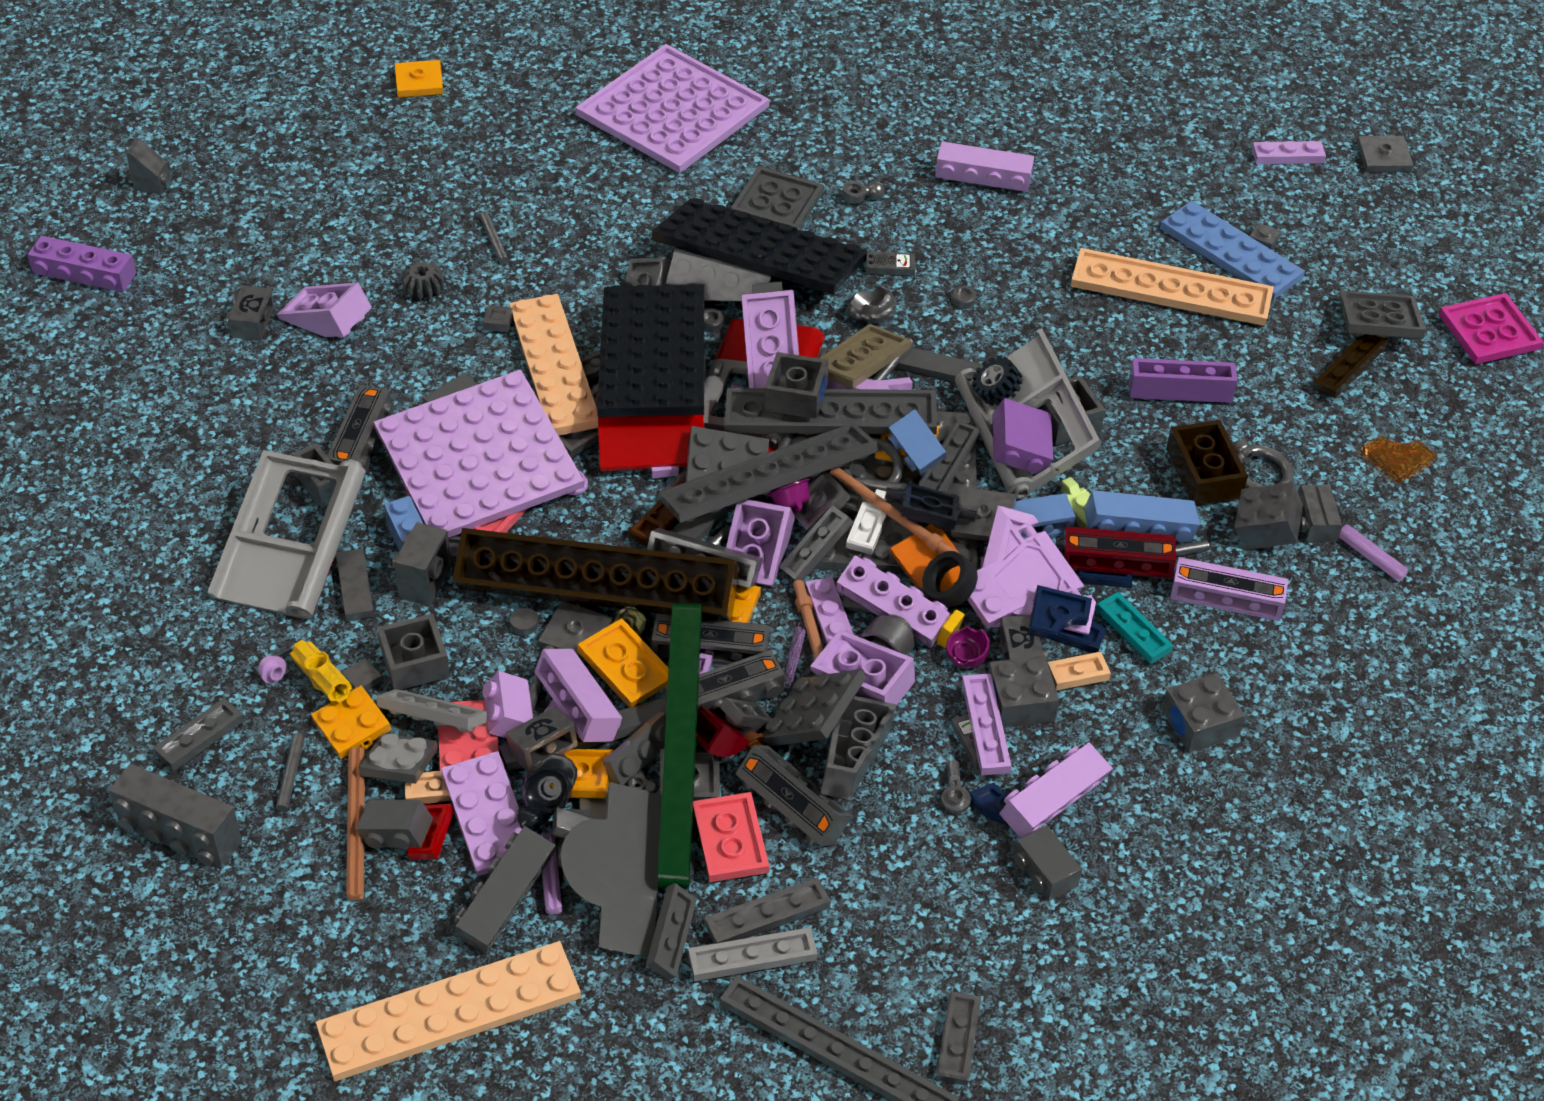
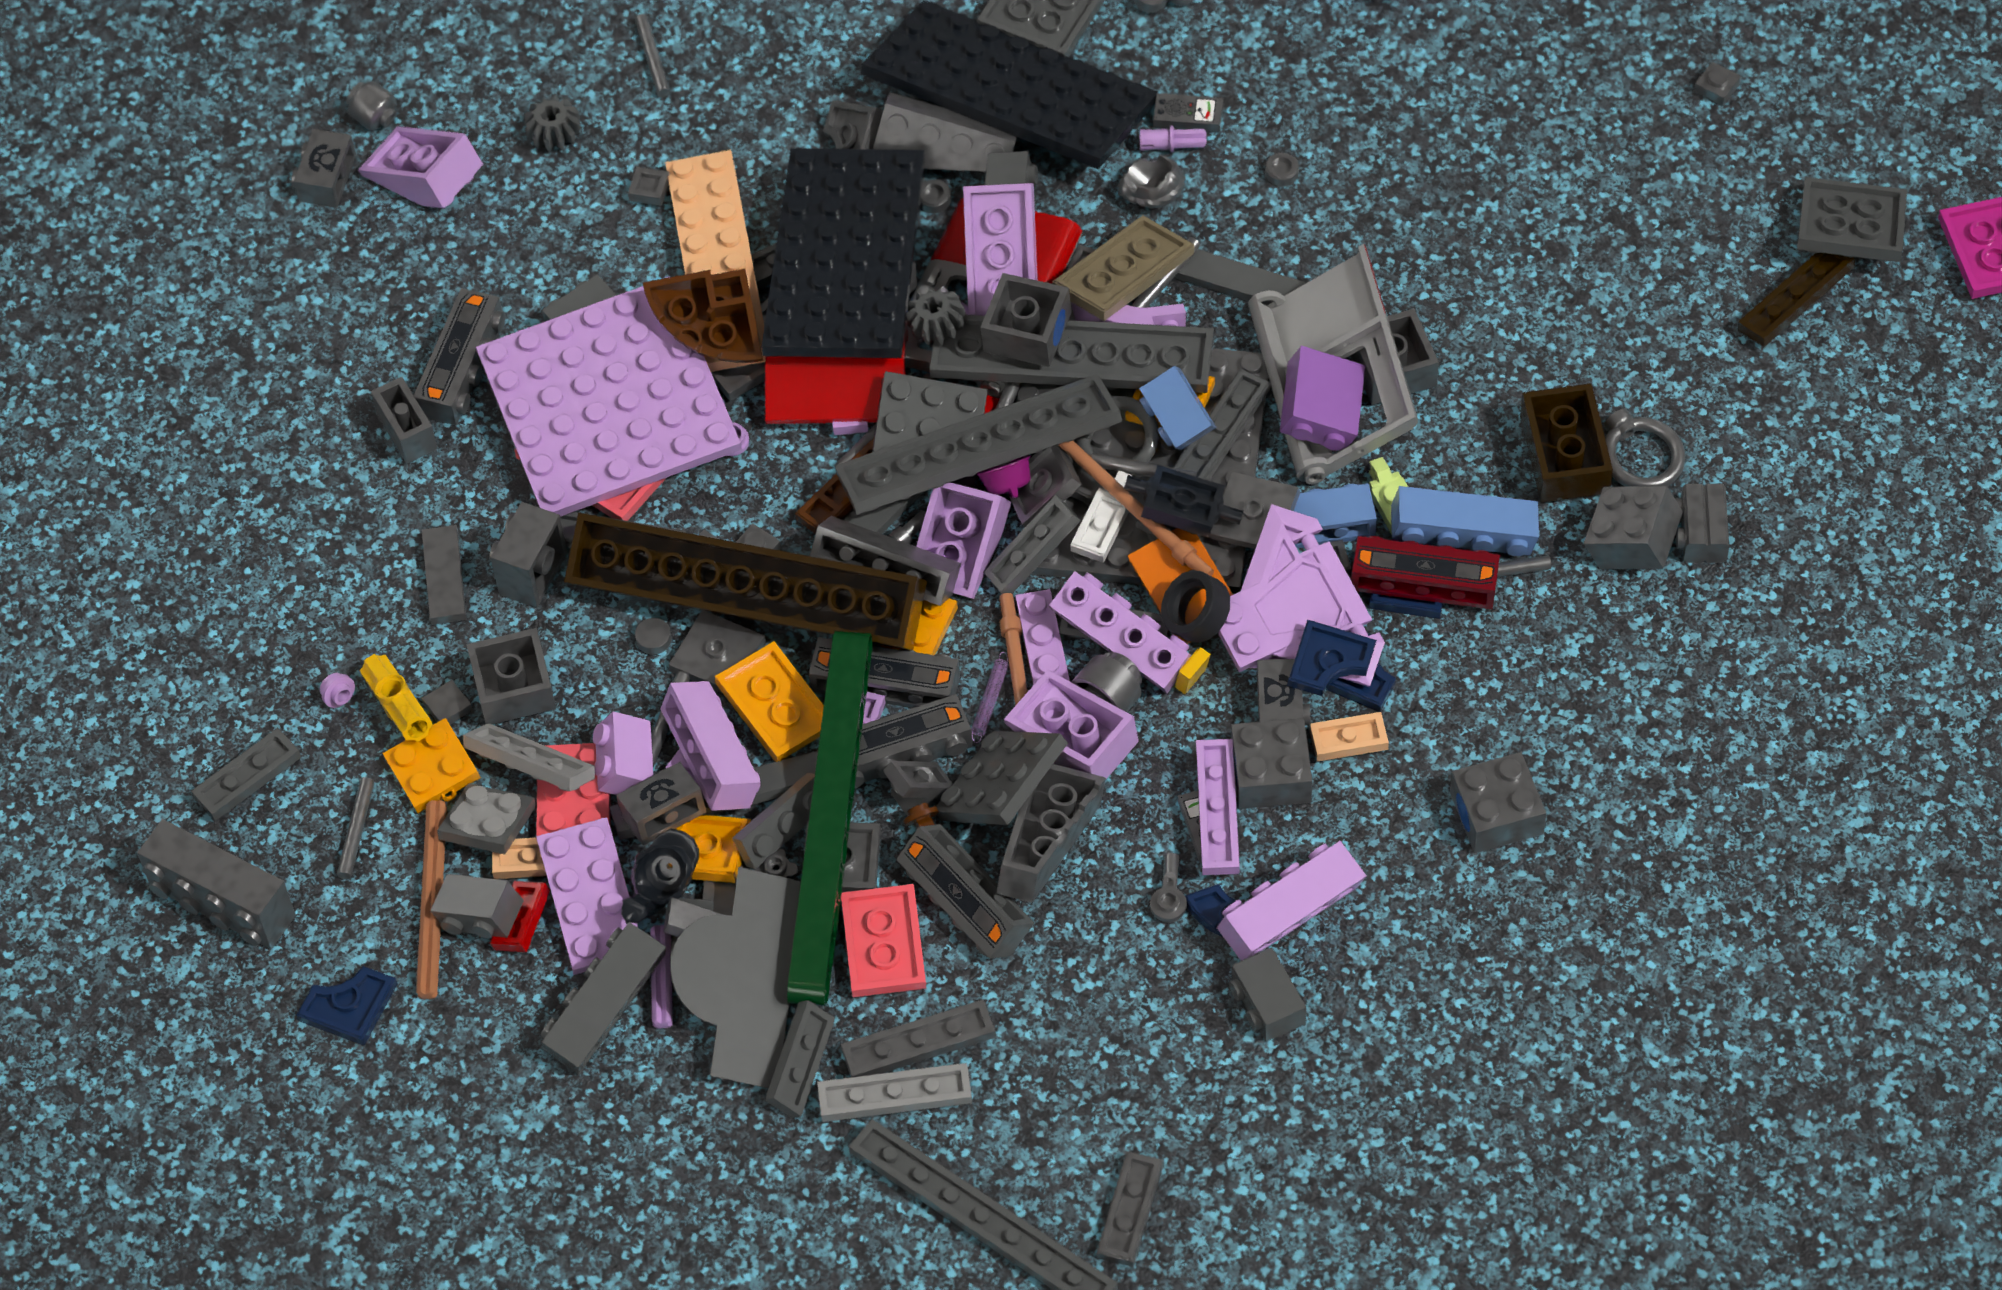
camera: 10 degrees right, 10 degrees up
(82, 263) = (105, 84): medium lavender brick -> none
(276, 571) = (344, 553): light grey piece -> none
(285, 272) = (371, 105): none -> flat silver head
(289, 911) = (350, 1007): none -> dark blue tile
(401, 518) = (507, 488): medium blue brick -> none
(447, 1010) = (530, 1141): light nougat plate -> none
(553, 390) = (708, 313): none -> reddish brown brick
(633, 618) = (789, 641): olive plate -> none
(718, 735) = (878, 807): dark red brick -> none
(726, 386) = (935, 315): none -> dark grey gear
(882, 278) = (1169, 139): none -> lavender axle
(967, 647) = (1210, 699): magenta hair -> none
(997, 380) = (1299, 313): black wheel -> none
(1134, 628) = (1431, 678): teal plate -> none
(1172, 286) = (1572, 163): light nougat plate -> none
(1182, 380) = (1556, 315): medium lavender brick -> none
(1229, 589) = (1564, 628): lavender brick -> none
(1231, 248) = (1668, 103): medium blue plate -> none
(1373, 553) = (1768, 582): lavender axle -> none
(1399, 459) = (1834, 442): clear orange tile -> none

